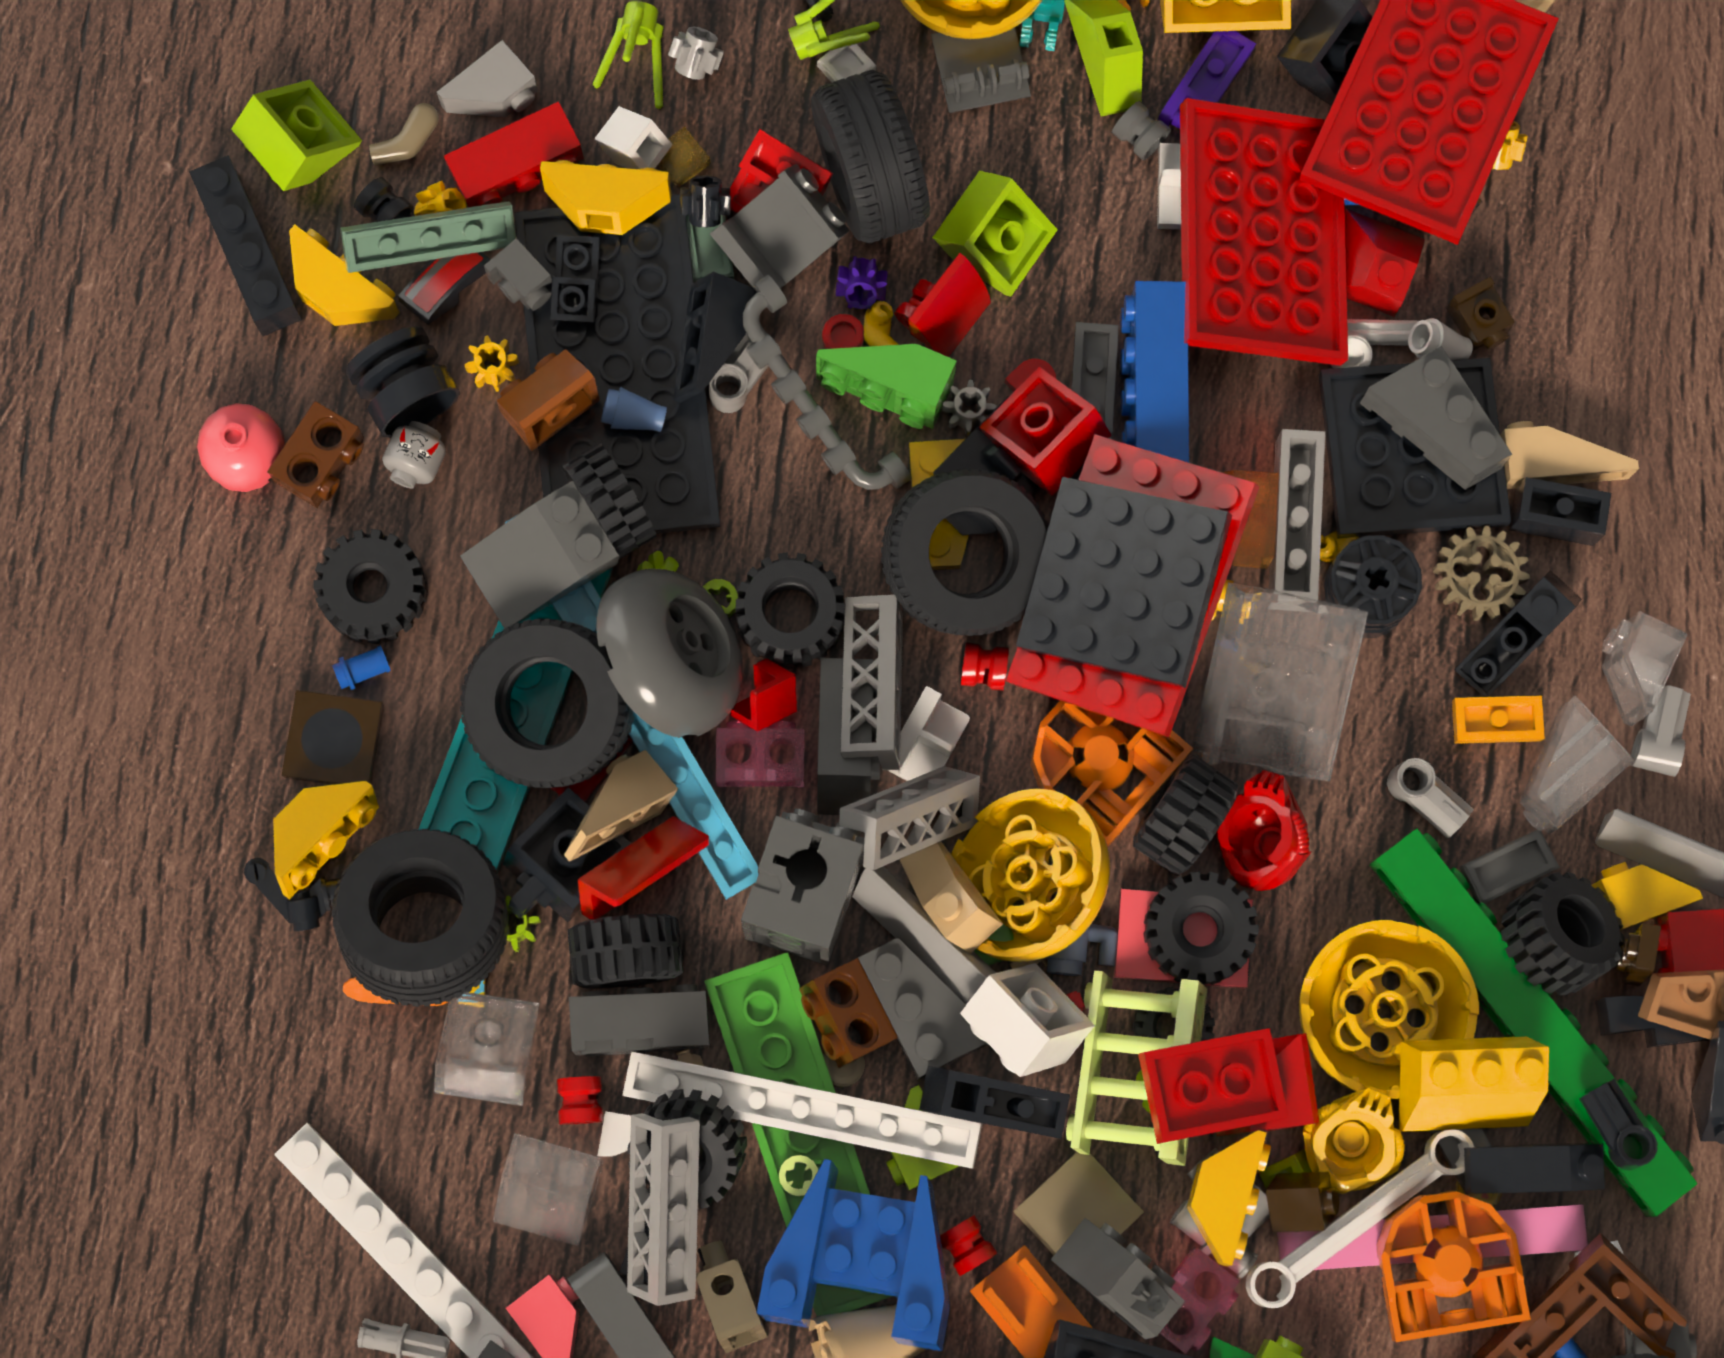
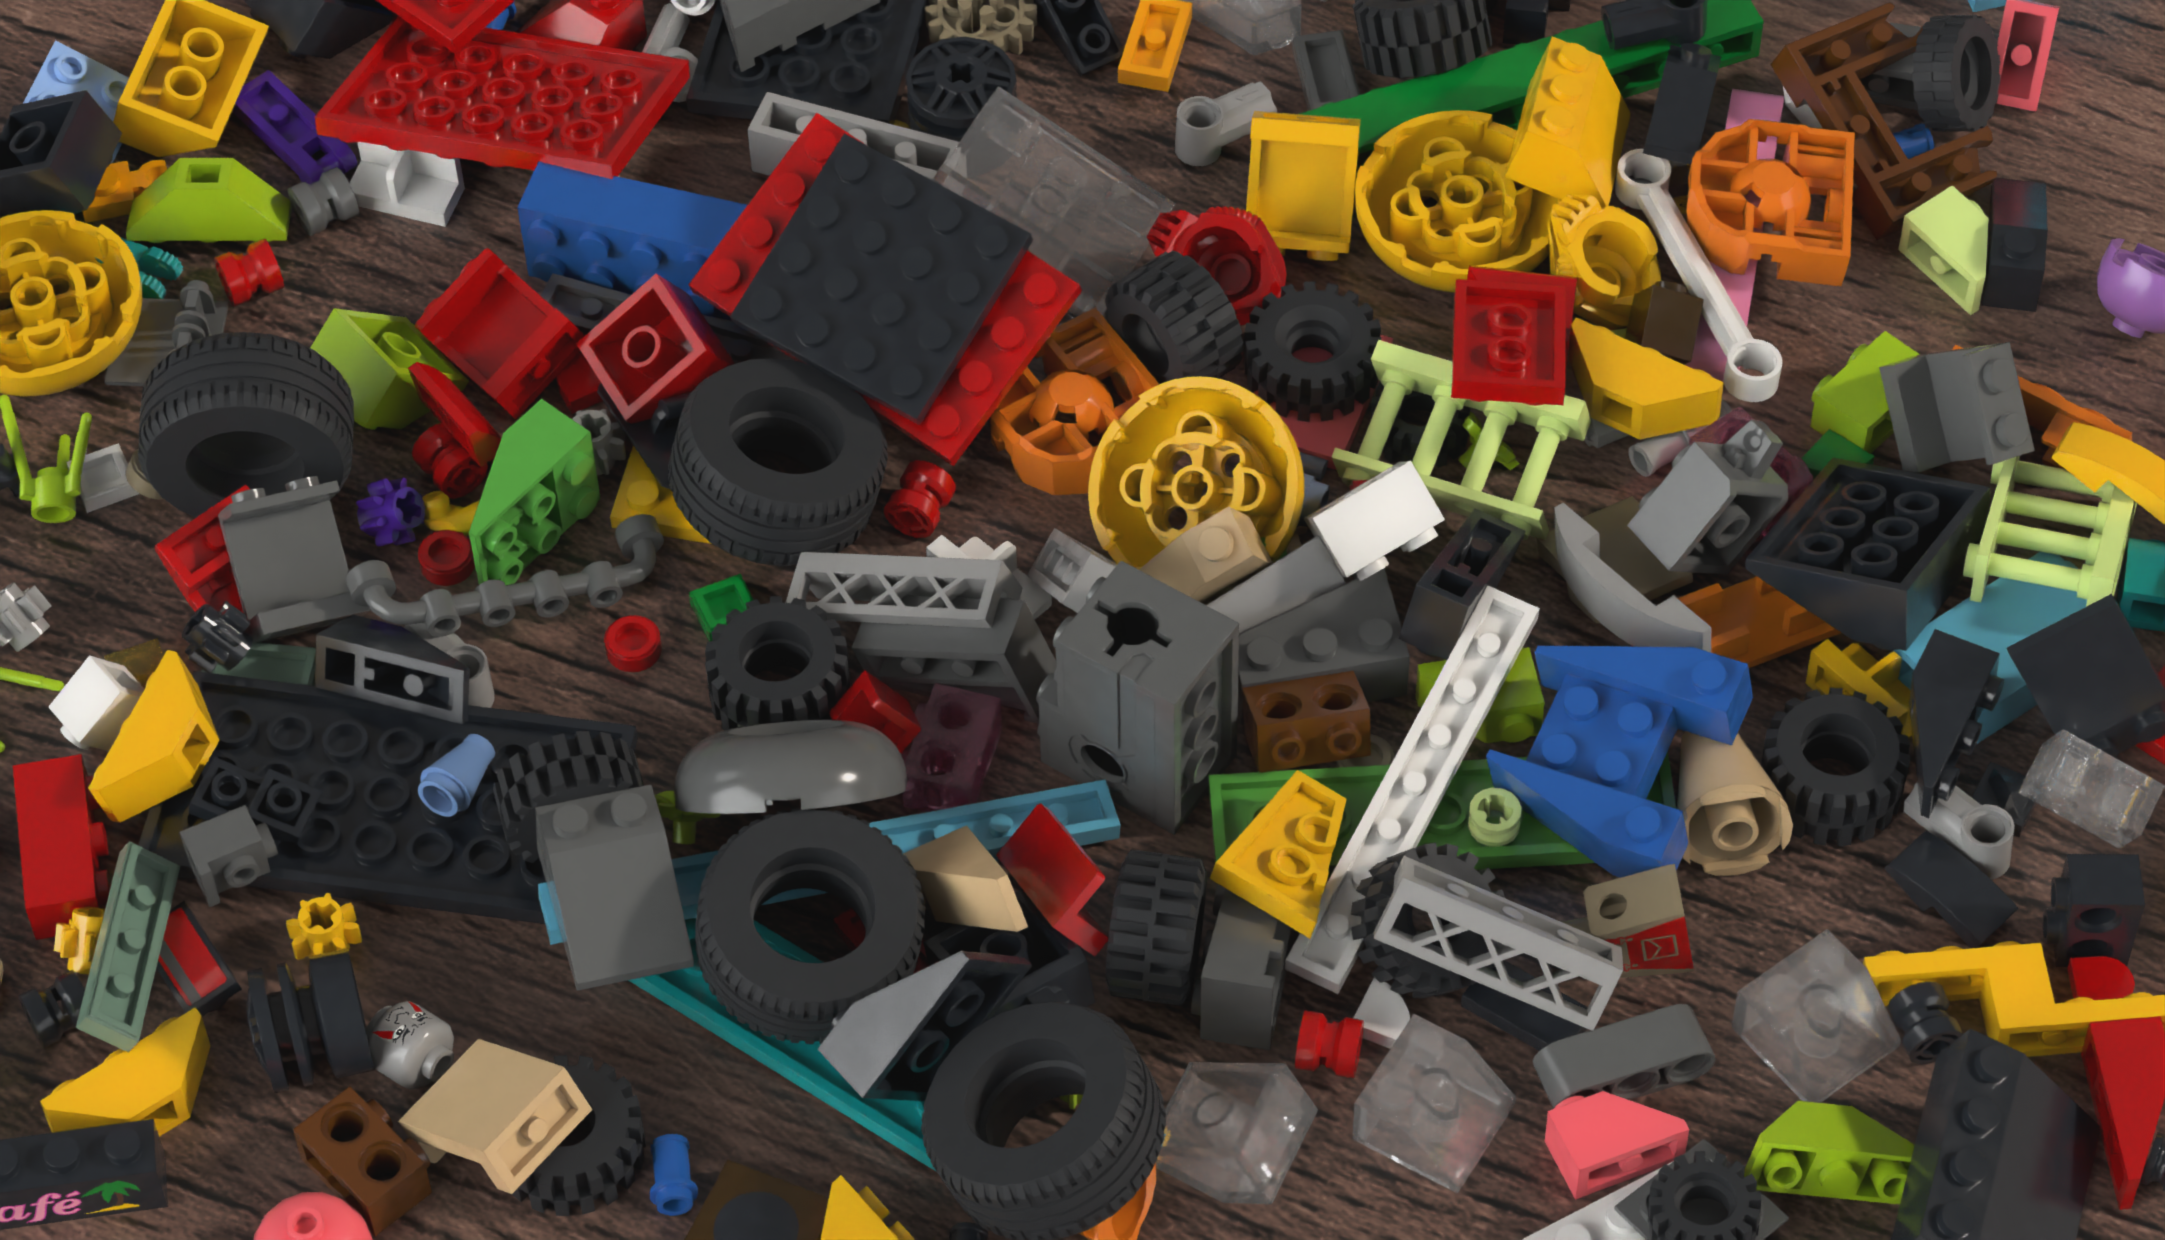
camera: 70 degrees left, 25 degrees down
(356, 532) = (497, 1112): none -> tan panel
(472, 801) = (905, 1031): none -> black slope
(548, 398) = (402, 849): dark orange slope -> none
(710, 1029) = (1286, 853): none -> yellow wing
(803, 496) = (633, 643): none -> red tile
(852, 553) = (717, 600): none -> green tile
(989, 1272) = (1614, 600): none -> light grey slope
(1047, 308) = (500, 332): none -> red panel
(1056, 100) = (244, 274): none -> red wheel
(1362, 878) = (1304, 180): none -> yellow panel

